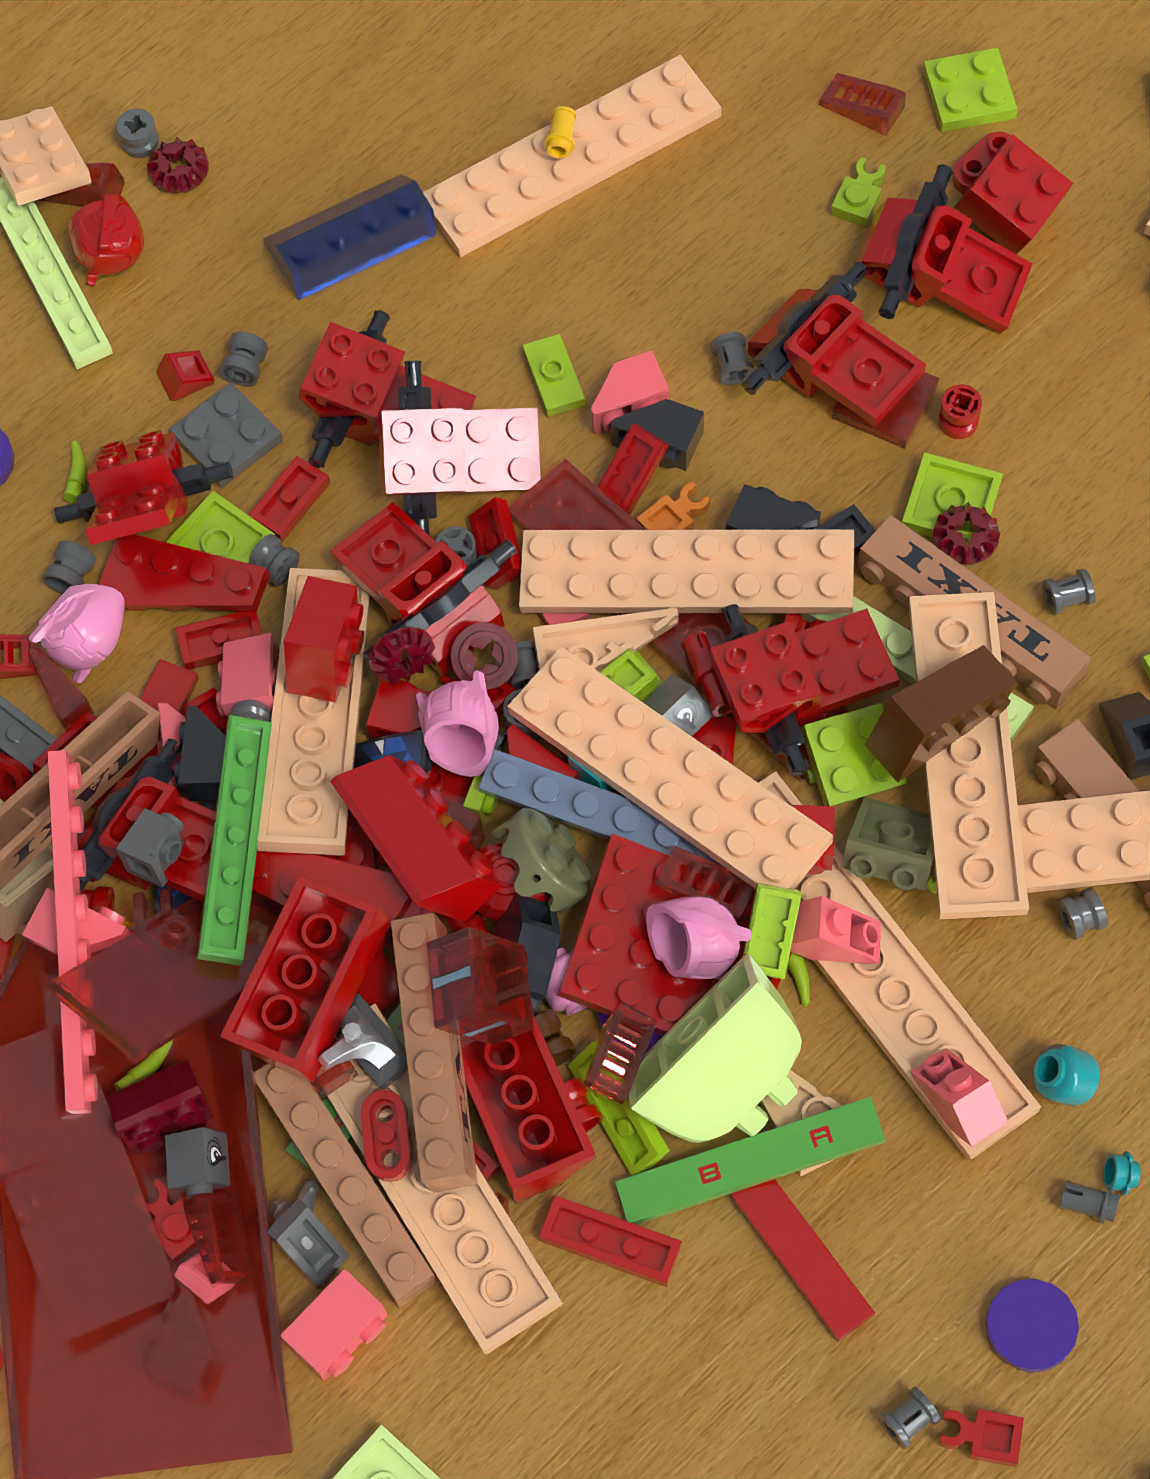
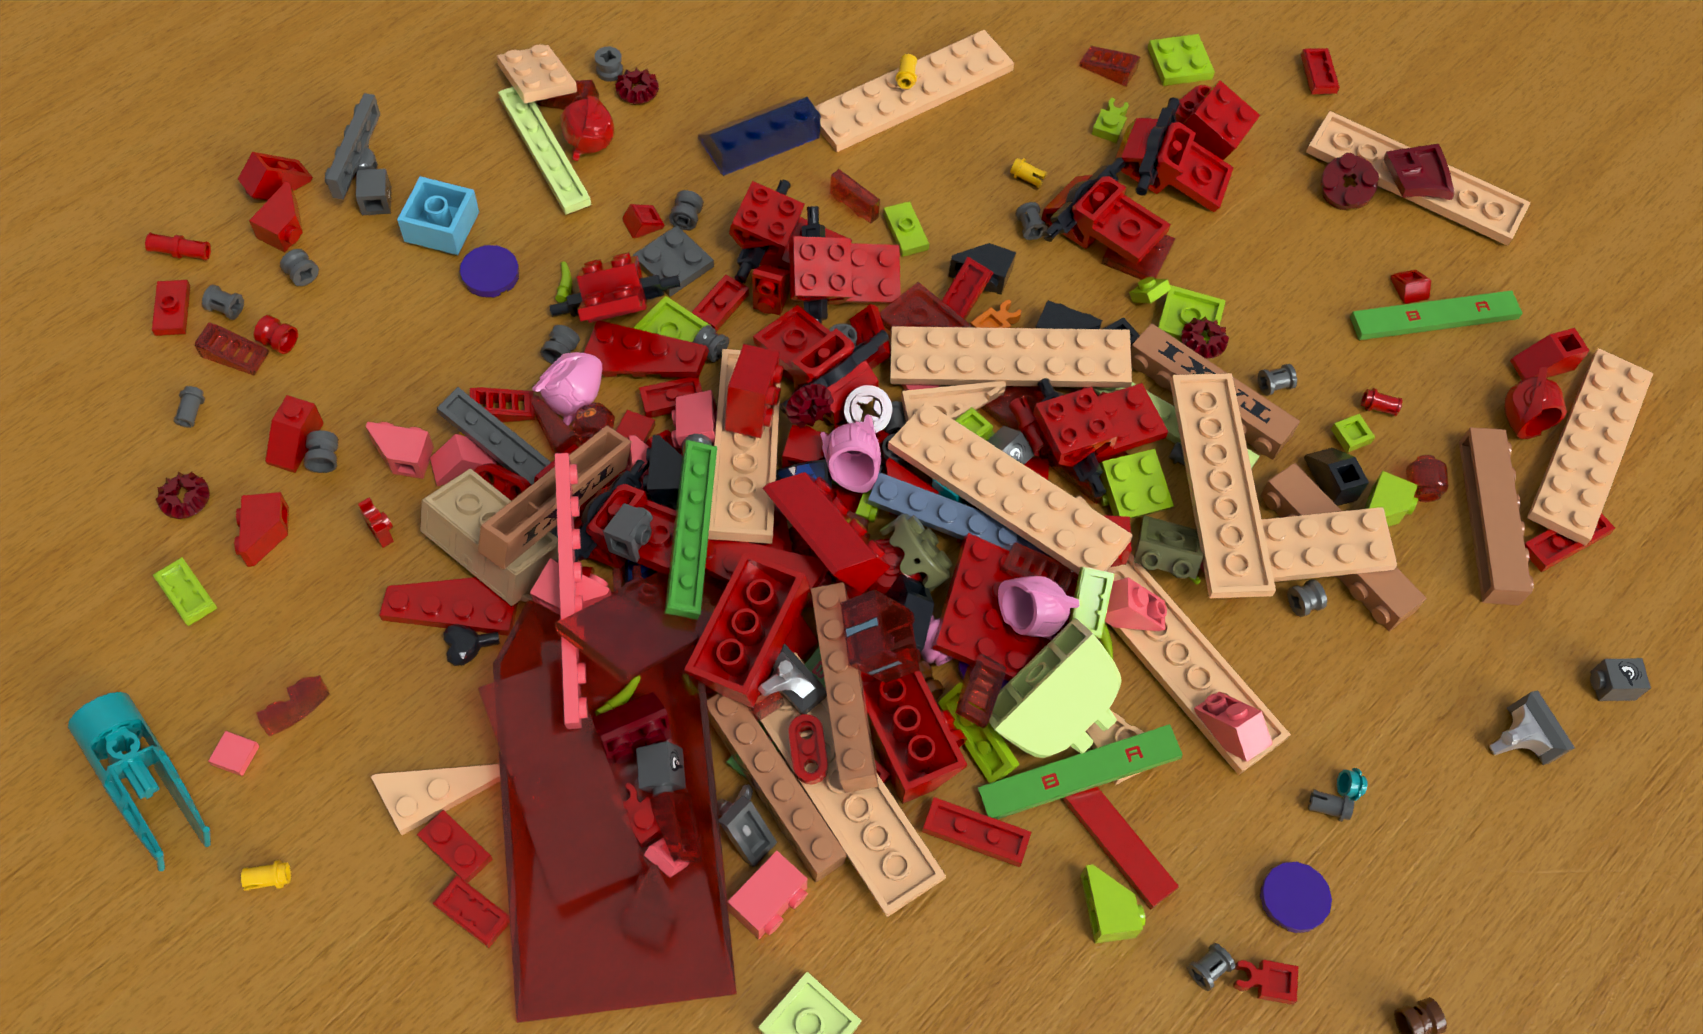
camera: 10 degrees left, 5 degrees down
(110, 679) = (590, 420): none -> clear red head
(356, 476) = (770, 289): none -> red slope
(488, 335) = (854, 196): none -> clear red plate
(628, 387) = (960, 235): coral slope -> none
(730, 281) = (1027, 171): none -> yellow pin
(782, 1341) = (1110, 907): none -> lime slope
(895, 461) = (1149, 290): none -> lime plate
(939, 711) = (1203, 450): reddish brown wedge -> none
(960, 411) = (1192, 259): red wheel -> none
(1066, 1075) = (1307, 711): teal head -> none

